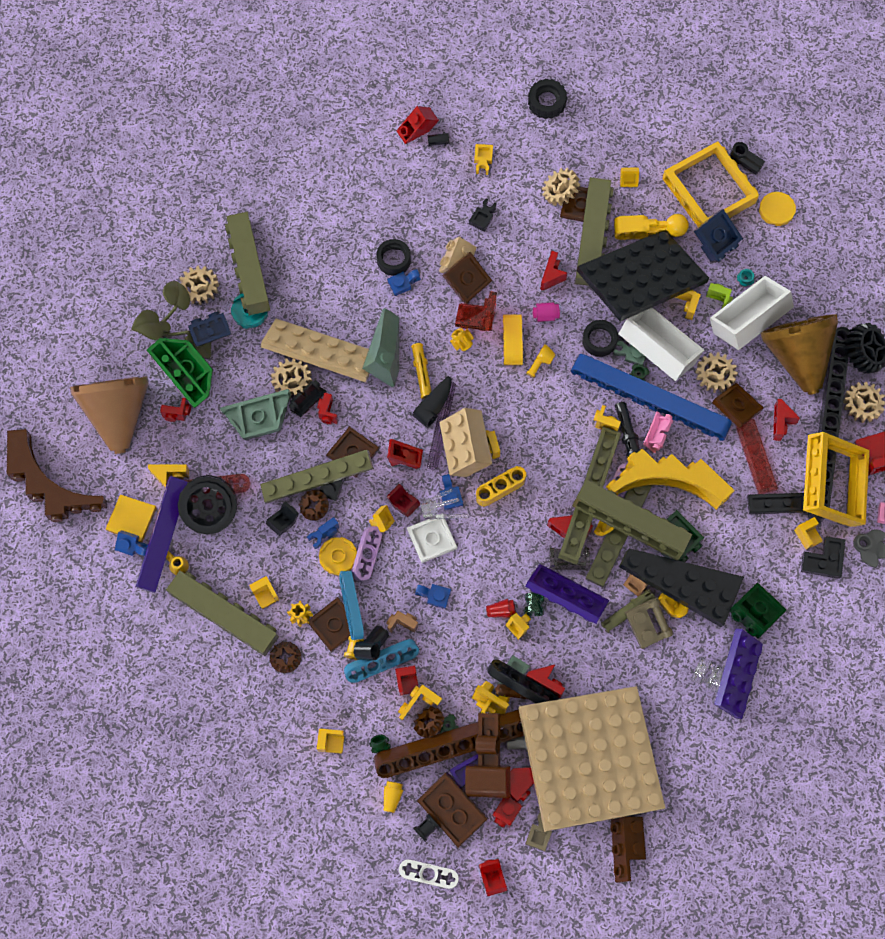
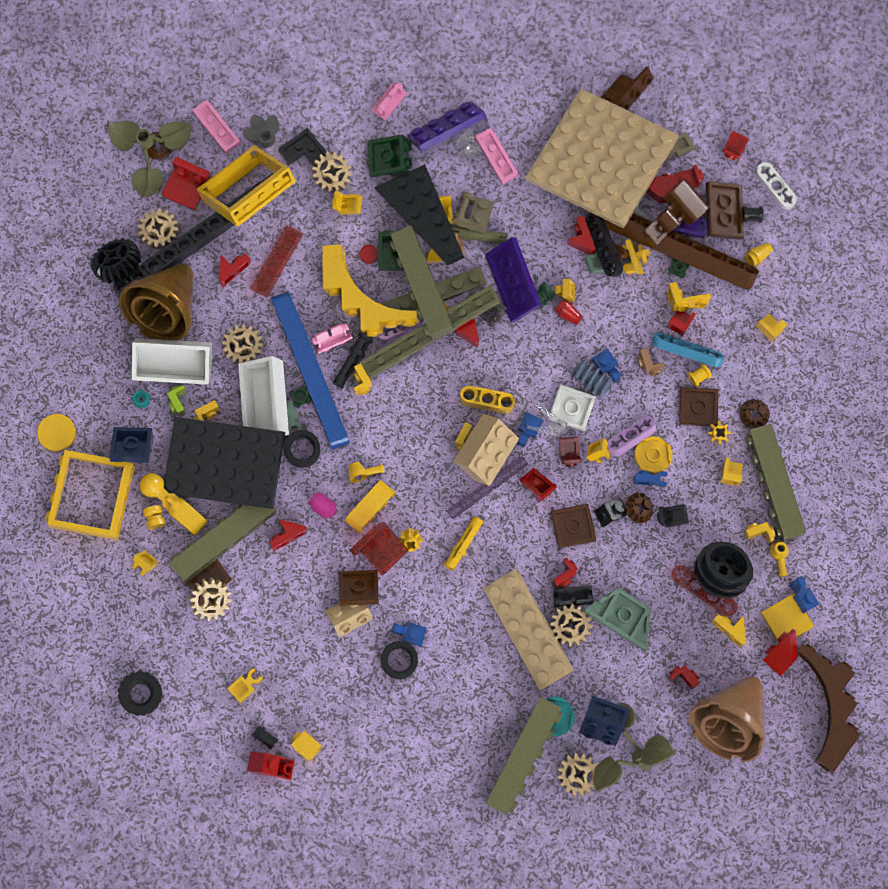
camera: 145 degrees left, 5 degrees up
(113, 483) = (783, 654): none -> red slope
(161, 536) = (775, 579): dark purple tile -> none
(184, 368) = (653, 699): green wedge -> none
(208, 562) = (755, 530): none -> yellow bracket
(316, 476) = (621, 522): olive plate -> none
(351, 605) = (677, 404): dark azure beam -> none
(370, 647) = (690, 361): black piece -> none
(379, 743) = (738, 299): dark green plate -> none
(383, 353) = (481, 581): sand green wedge -> none
(405, 154) = (305, 745): none -> yellow brick
(430, 407) = (479, 506): black piece -> none
(432, 727) = (693, 271): reddish brown gear -> none
(436, 571) = (592, 378): none -> sand blue piece
(482, 217) = (296, 633): black plate -> none
(653, 208) = (154, 517): none -> yellow wheel
(677, 689) = (496, 156): none -> bright pink plate
(697, 520) = (368, 254): none -> red tile
(737, 405) = (253, 306): reddish brown tile -> none
(746, 157) = (37, 492): black piece -> none
(751, 543) = (347, 204): none -> yellow bracket
(775, 503) = (296, 216): black tile -> none
(780, 553) = (329, 163): none -> tan gear
(804, 659) = (389, 101): none -> bright pink hinge
(808, 534) = (300, 175): yellow panel -> none

